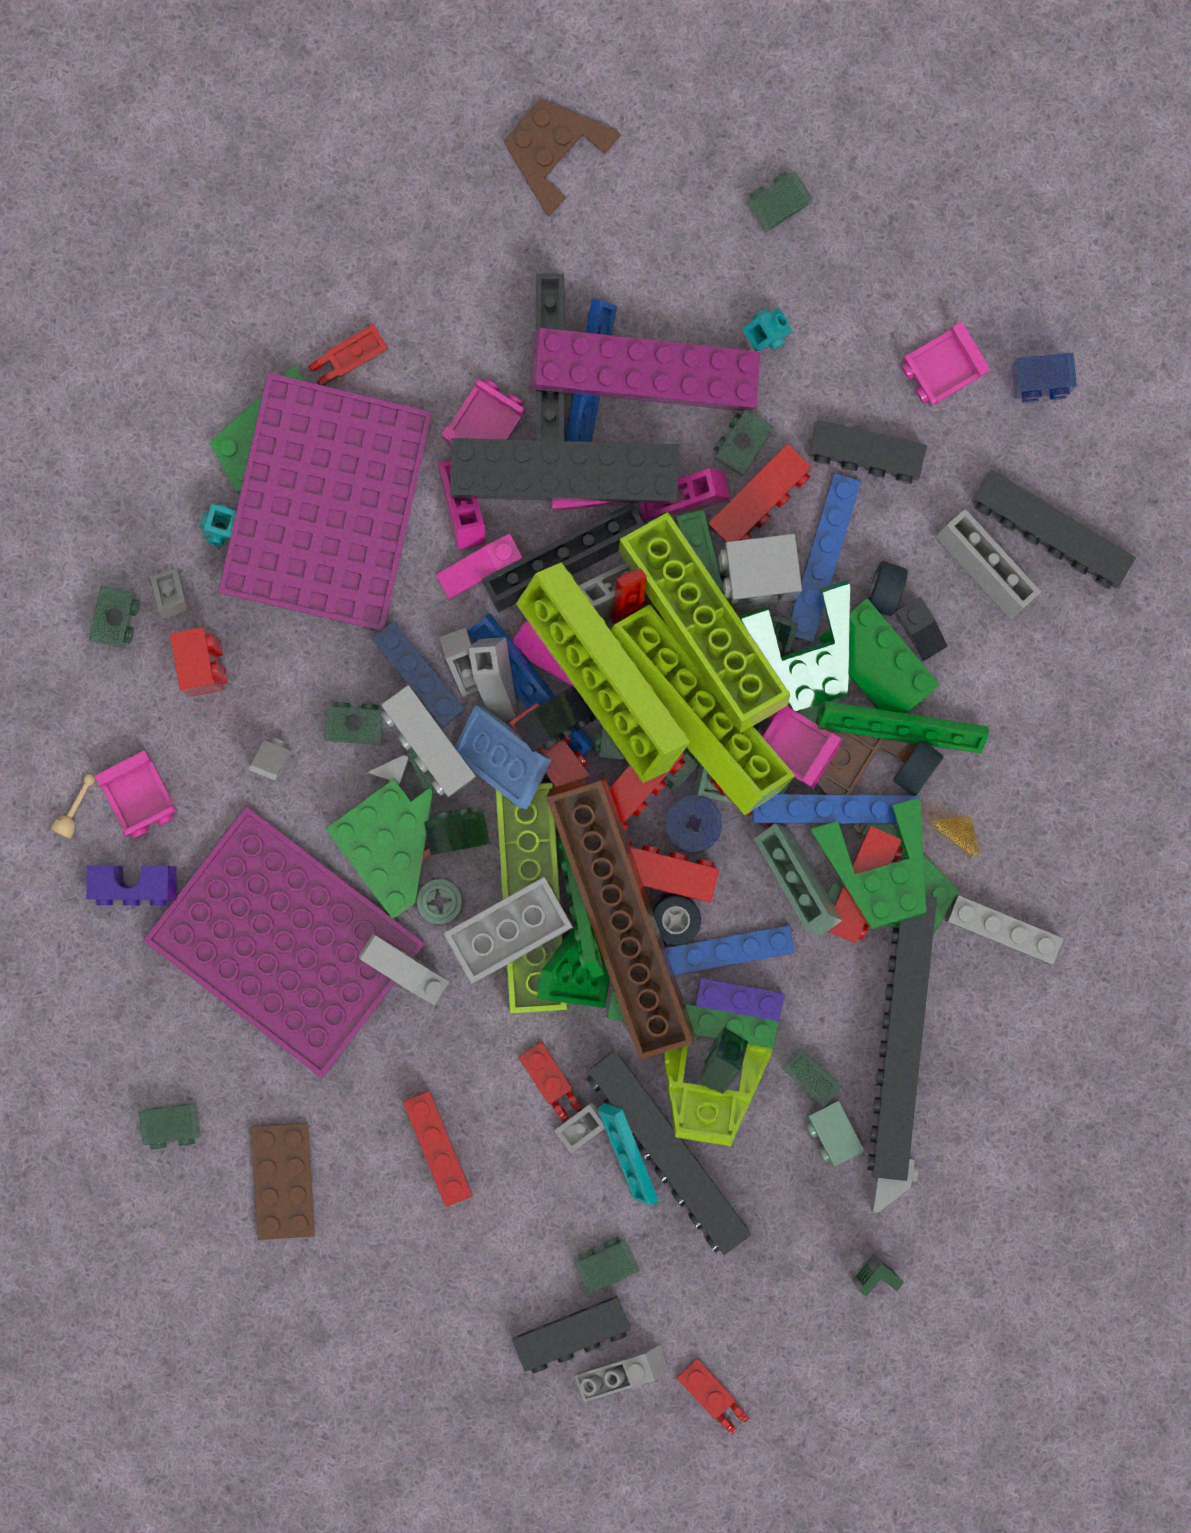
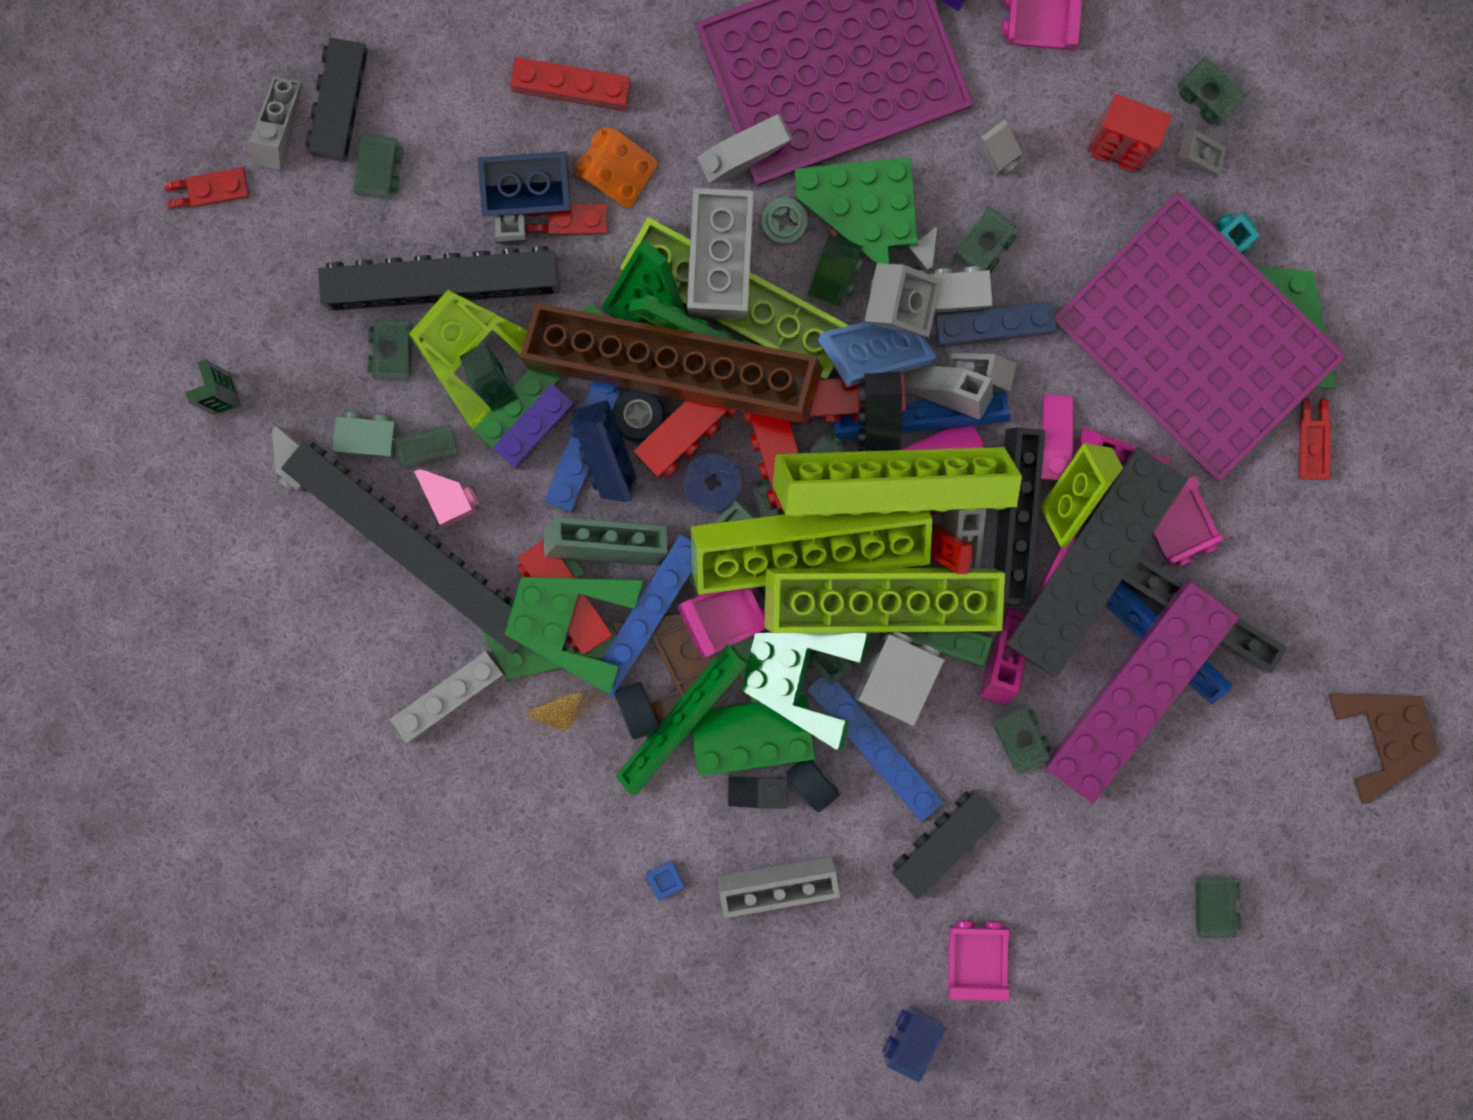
camera: 125 degrees right, 0 degrees up
(451, 759) = (903, 299): none -> light grey slope
(482, 1068) = (615, 166): none -> orange bracket
(514, 519) = (1080, 490): none -> lime slope
(544, 1134) = (524, 183): none -> dark blue slope
(627, 1154) = (460, 242): teal tile -> none
(725, 927) = (604, 451): none -> dark blue slope
(759, 1142) = (395, 367): none -> clear green brick
(760, 495) = (964, 724): red brick -> none
(768, 330) = (1108, 823): teal brick -> none
(842, 1032) = (448, 498): none -> bright pink slope
(1040, 659) = (665, 880): none -> blue plate
(1053, 529) = (771, 965): black brick -> none

